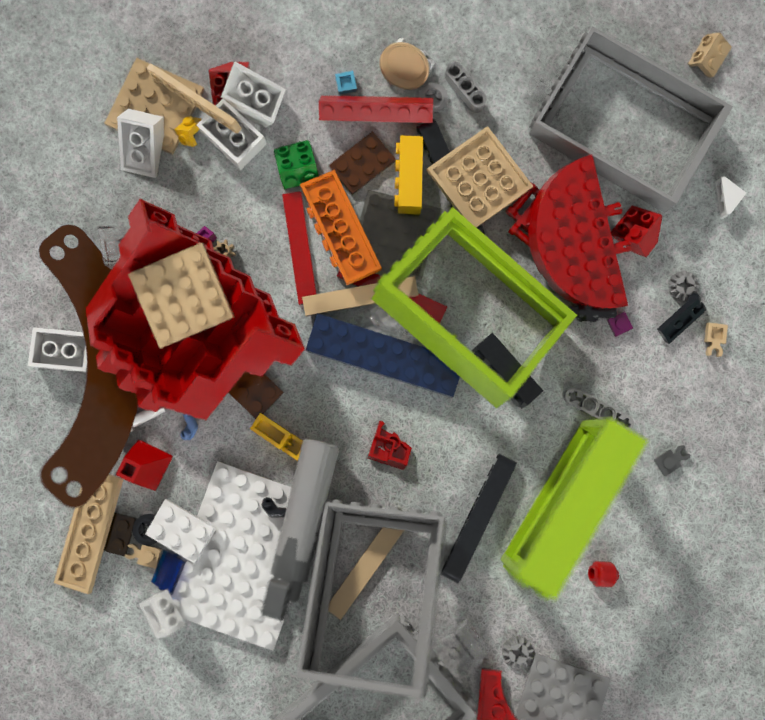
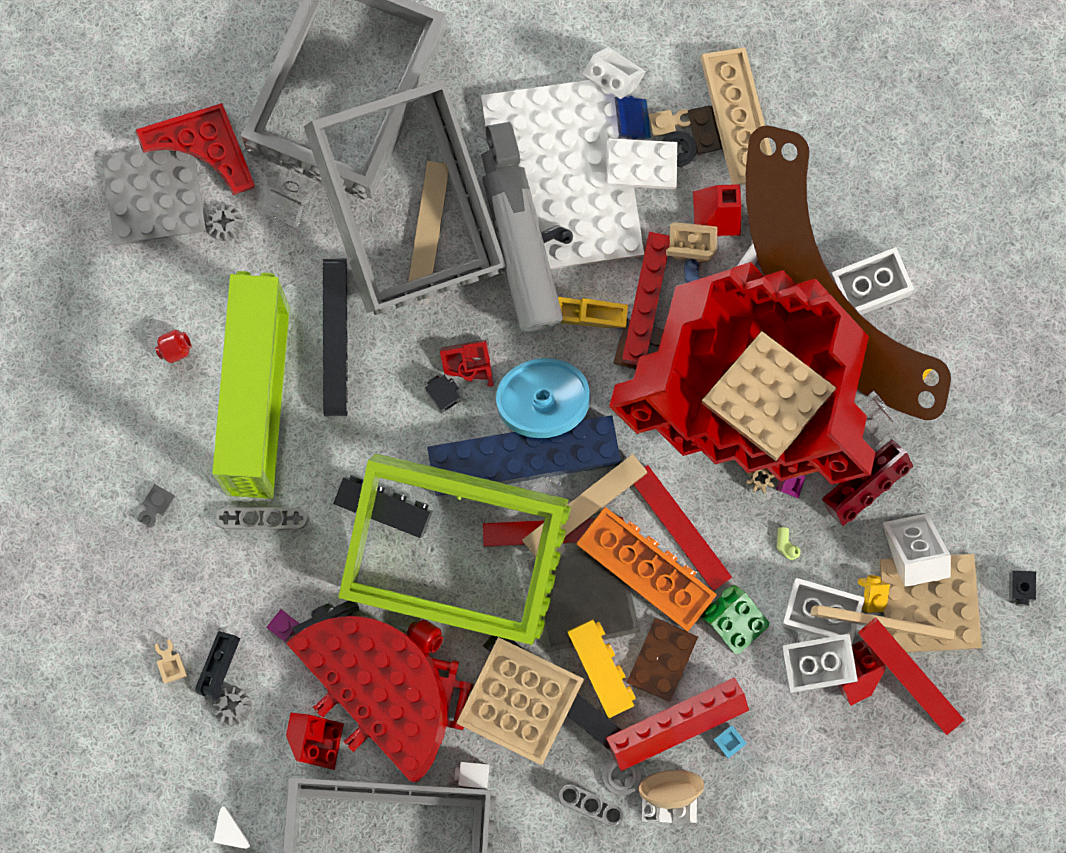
camera: 155 degrees right, 5 degrees down
(83, 82) = (1022, 587): none -> black brick
(172, 201) = (854, 495): none -> dark red brick
(176, 450) = (692, 242): none -> tan bracket
(195, 55) = (911, 676): none -> red tile
(233, 197) = (784, 546): none -> yellowish green arm
(233, 426) = (646, 298): none -> red plate
(349, 389) = (543, 398): none -> medium azure dish
(419, 434) = (443, 392): none -> black brick
(524, 259) = (426, 635): none -> red head
(537, 149) = (472, 775): none -> white brick

